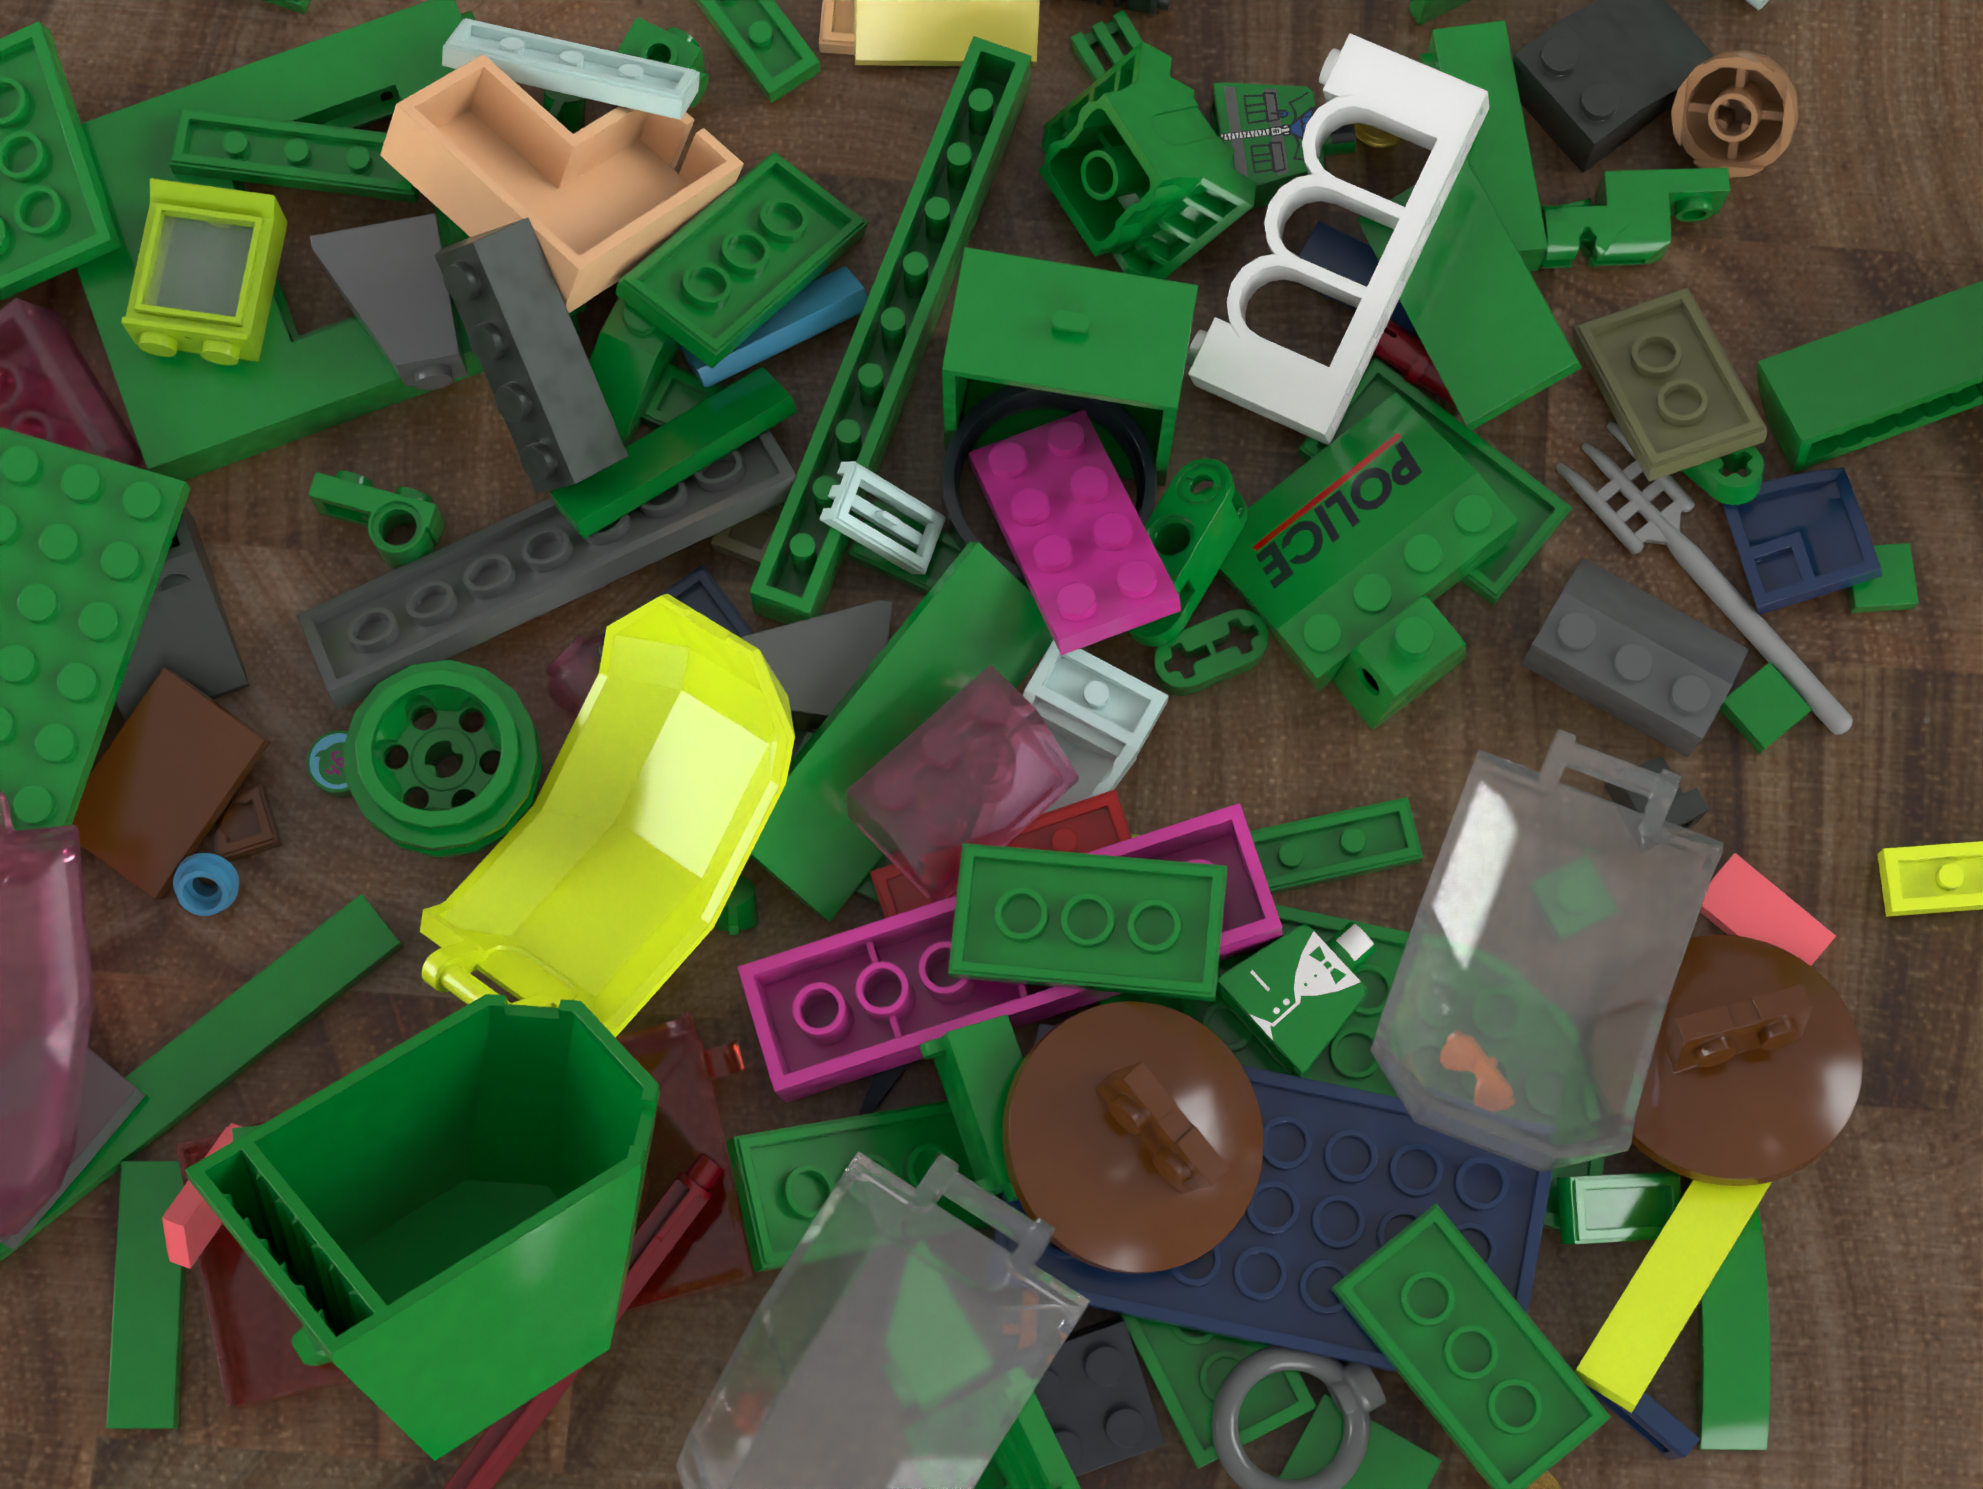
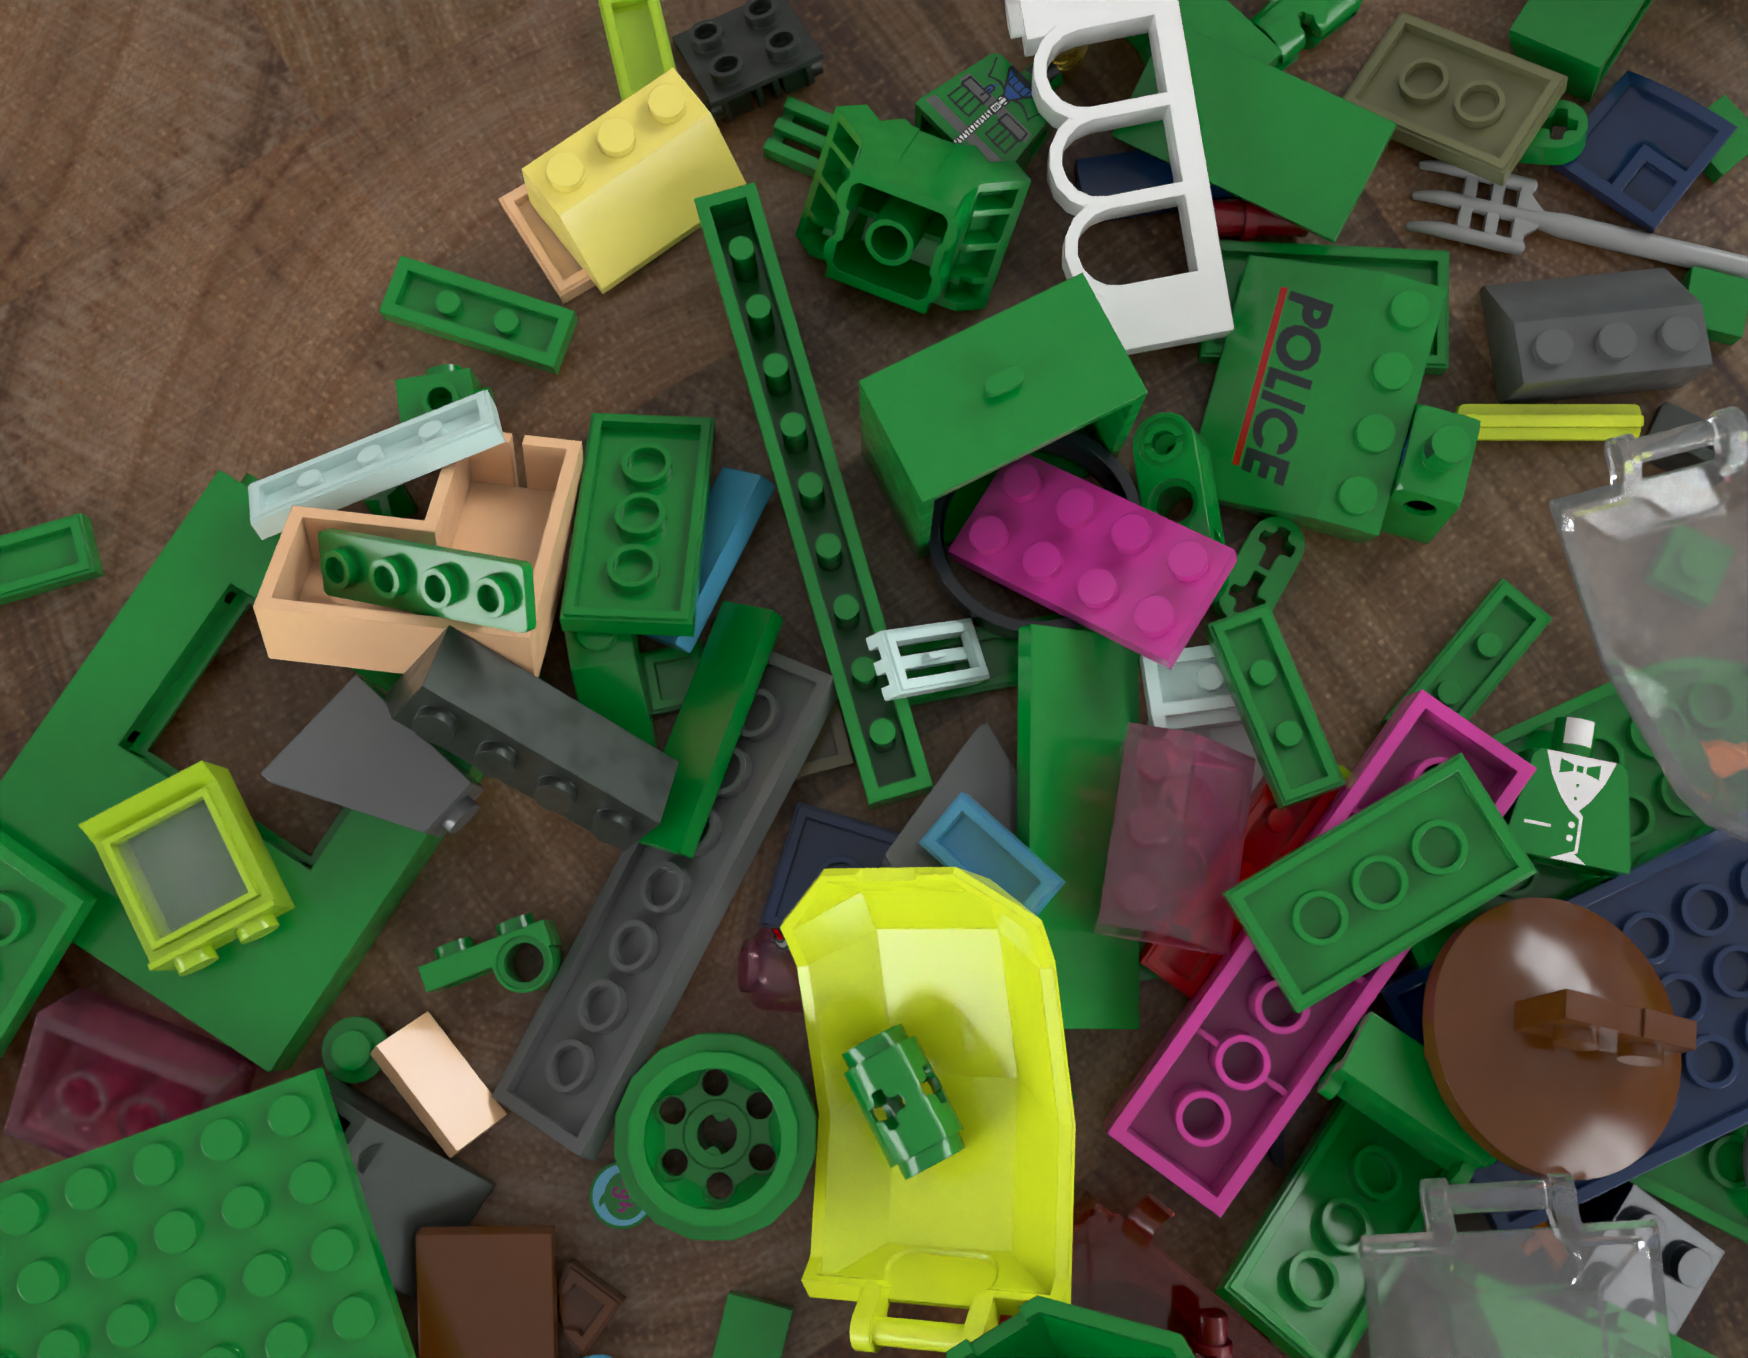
camera: 35 degrees left, 5 degrees up
(222, 506) = (348, 1049): none -> green plate
(264, 576) = (438, 1084): none -> light nougat tile
(286, 155) = (180, 712): green tile -> none
(538, 174) = (428, 579): none -> green bracket
(599, 859) = (922, 1128): none -> green piece
(810, 679) = (980, 844): none -> dark azure tile
(1123, 745) = (1274, 706): none -> green tile
(1542, 697) = (1554, 421): none -> neon yellow axle

